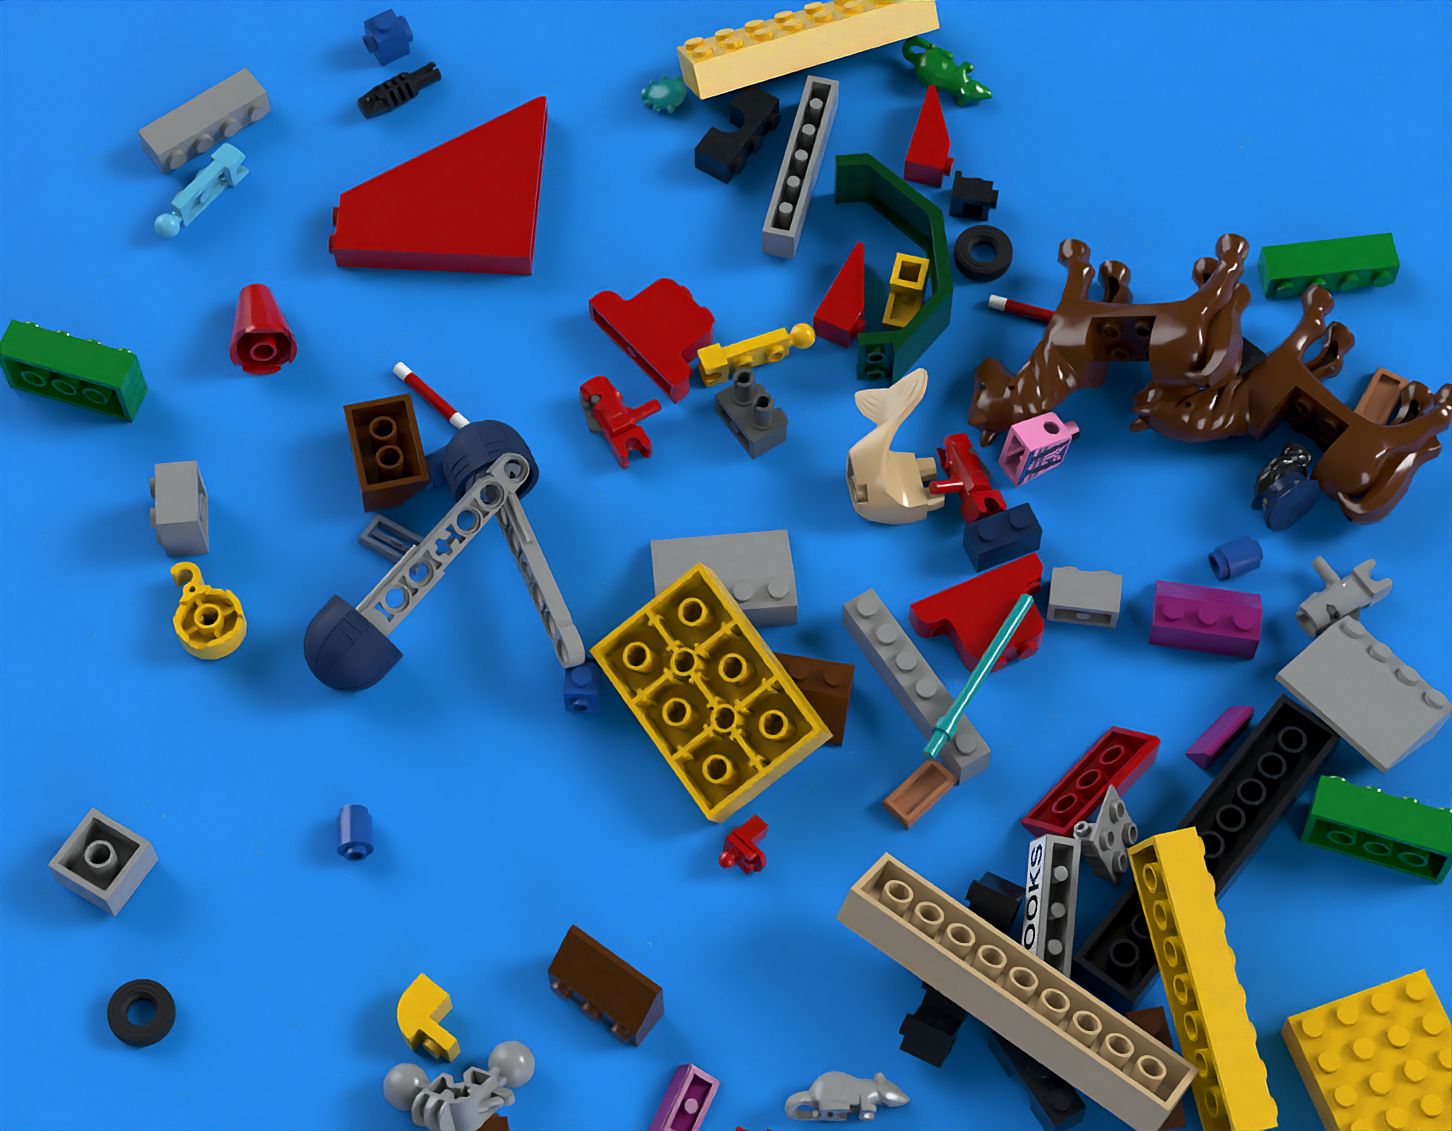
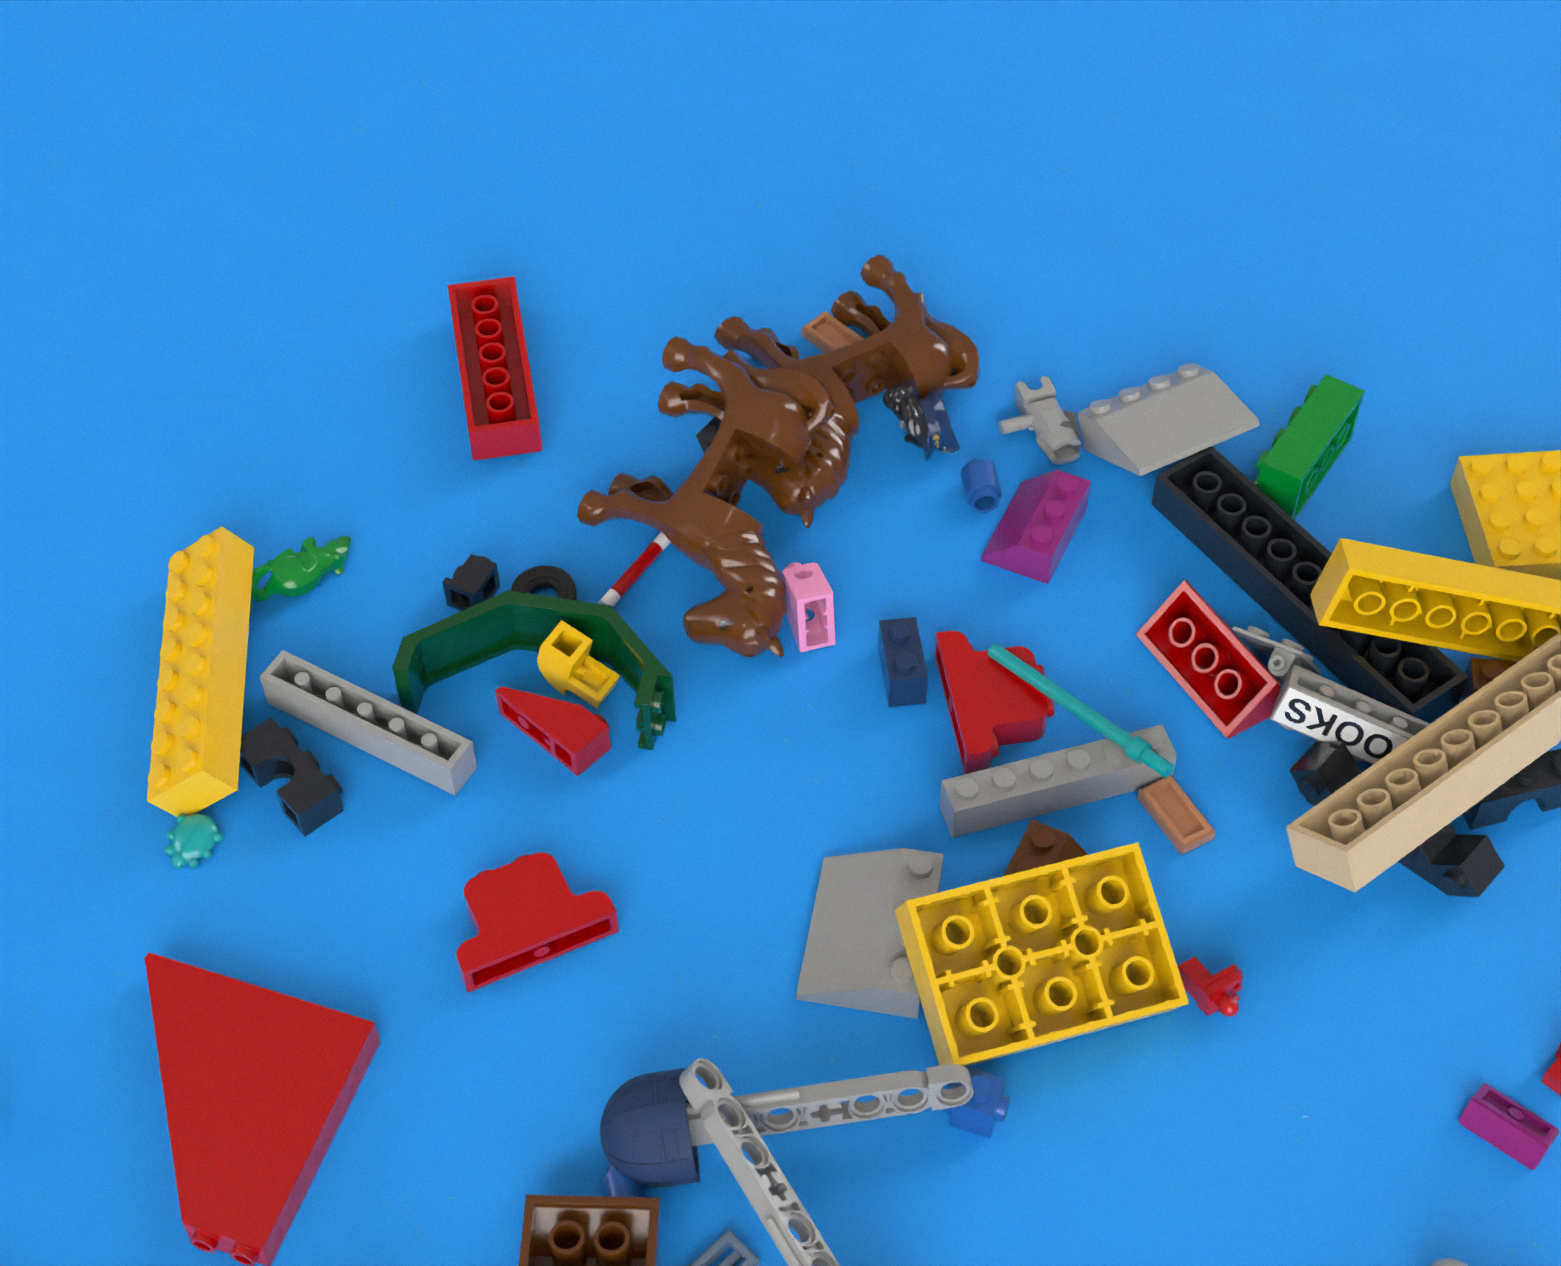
camera: 75 degrees left, 10 degrees down
(397, 91) = (41, 1129): black hinge -> none
(430, 396) = (515, 1190): red bar -> none
(605, 987) = (1371, 1161): reddish brown slope -> none
(611, 418) = (629, 990): red piece -> none
(751, 414) = (673, 850): dark grey brick -> none
(769, 347) = (591, 864): yellow plate -> none
(839, 1093) = (1522, 962): light grey animal -> none
(883, 482) = (802, 743): tan hips -> none
(929, 150) = (386, 602): red slope -> none
(968, 478) = (825, 673): red piece -> none
(1084, 597) = (990, 610): light grey brick -> none
(1215, 135) = (494, 369): none -> red brick
(1220, 736) = (1170, 549): magenta slope -> none
(1328, 263) = (679, 315): green brick -> none

